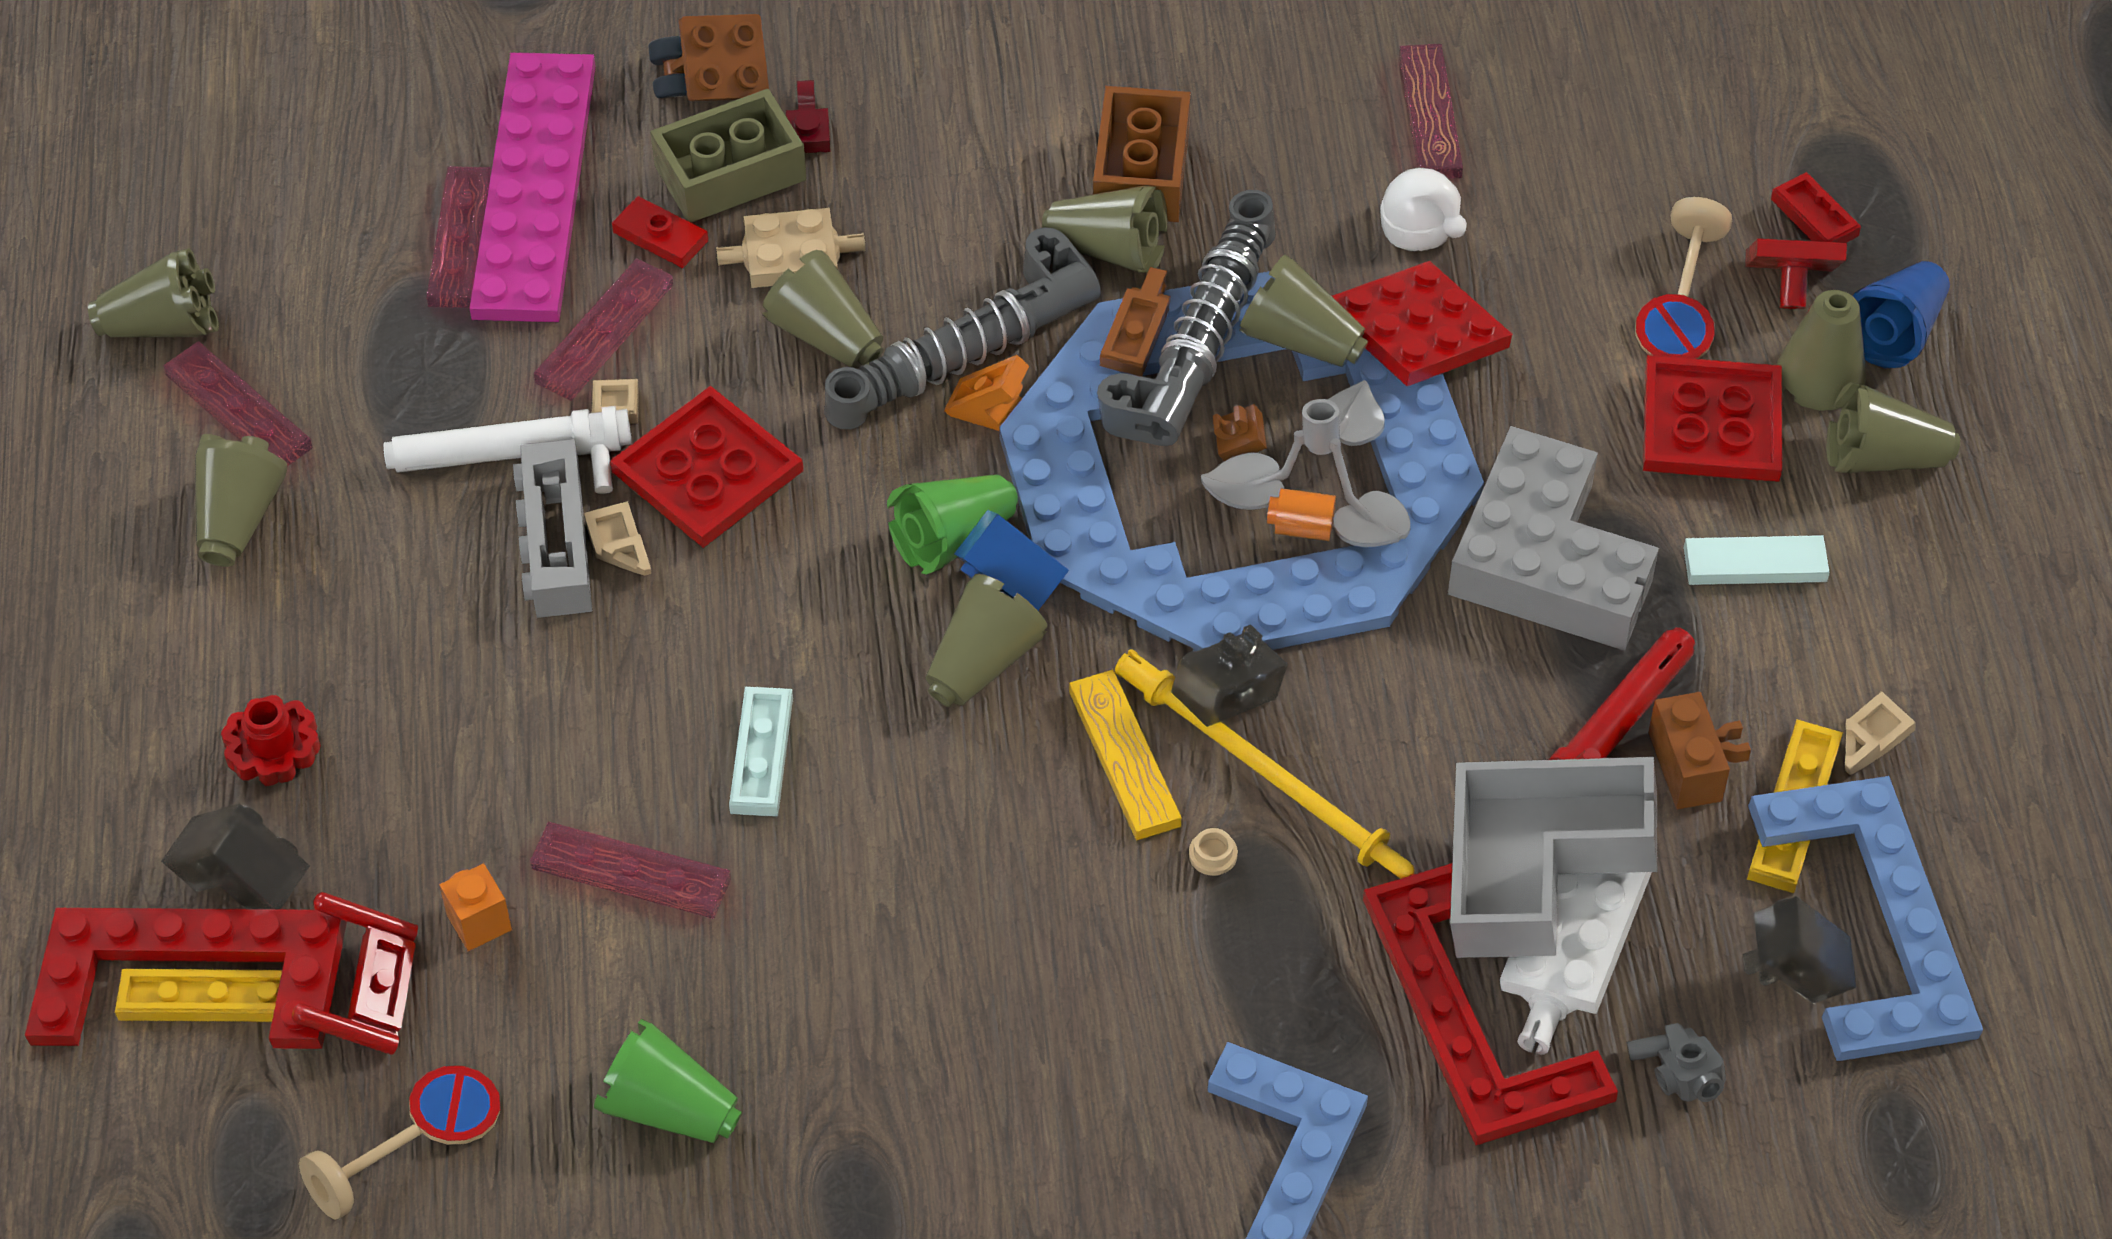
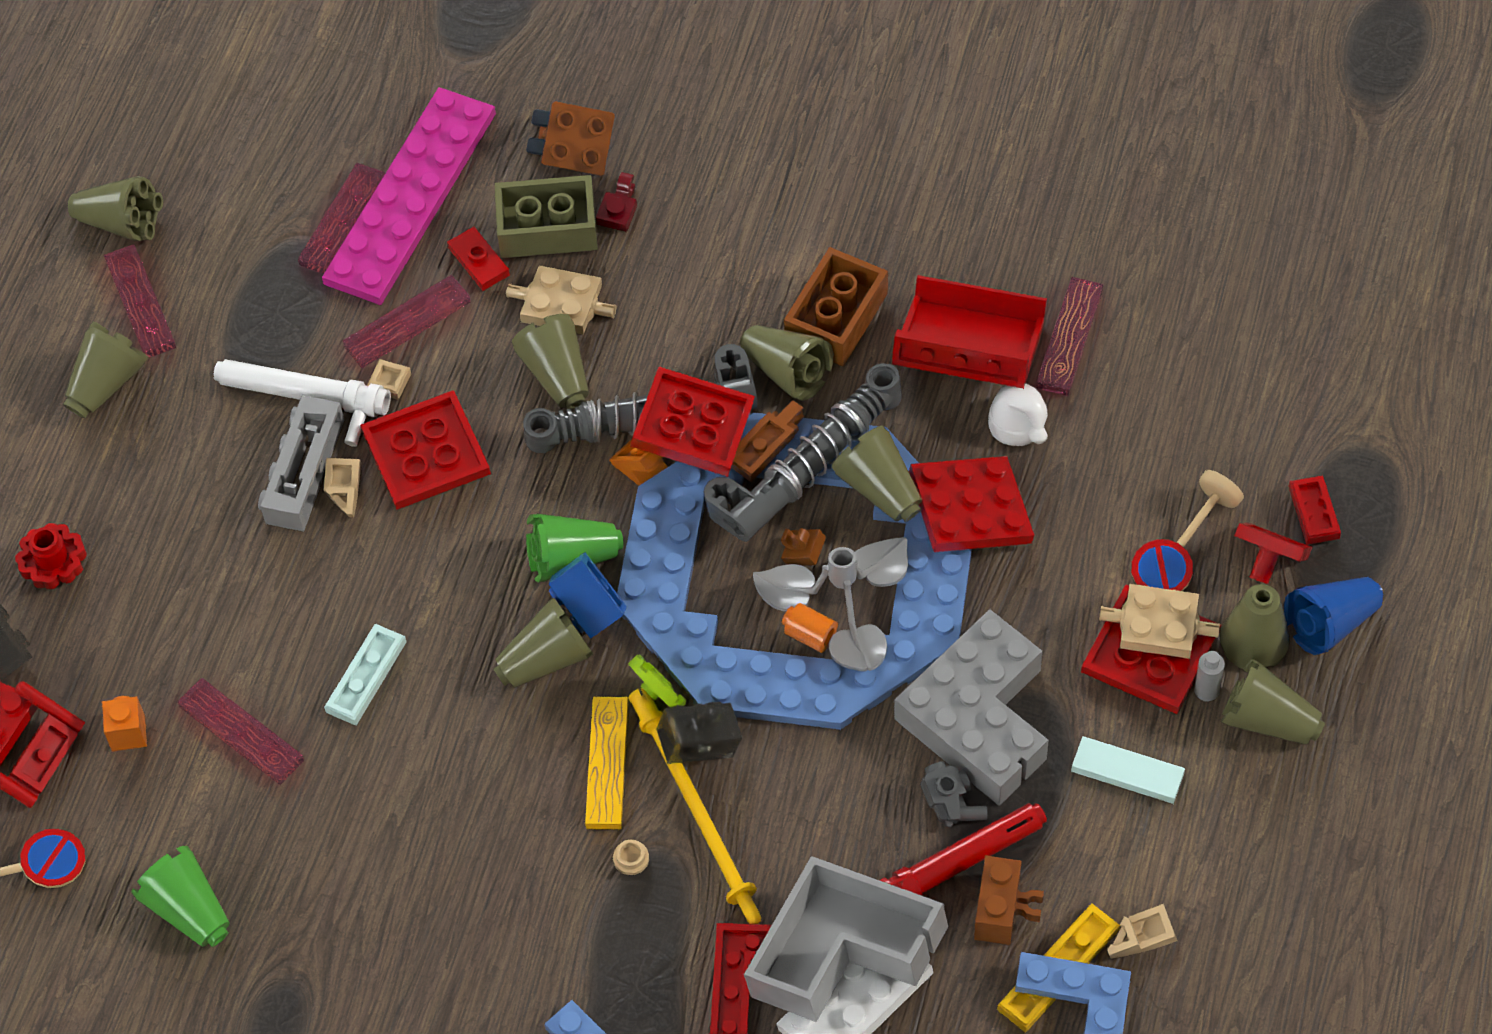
camera: 25 degrees right, 5 degrees up
(1045, 322) = (692, 421): none -> red plate
(1148, 636) = (655, 683): none -> lime plate
(1320, 132) = (970, 332): none -> red panel
(1557, 651) = (945, 792): none -> dark grey piece
(1712, 380) = (1159, 621): none -> tan plate
(1801, 422) = (1209, 676): none -> light grey cylinder

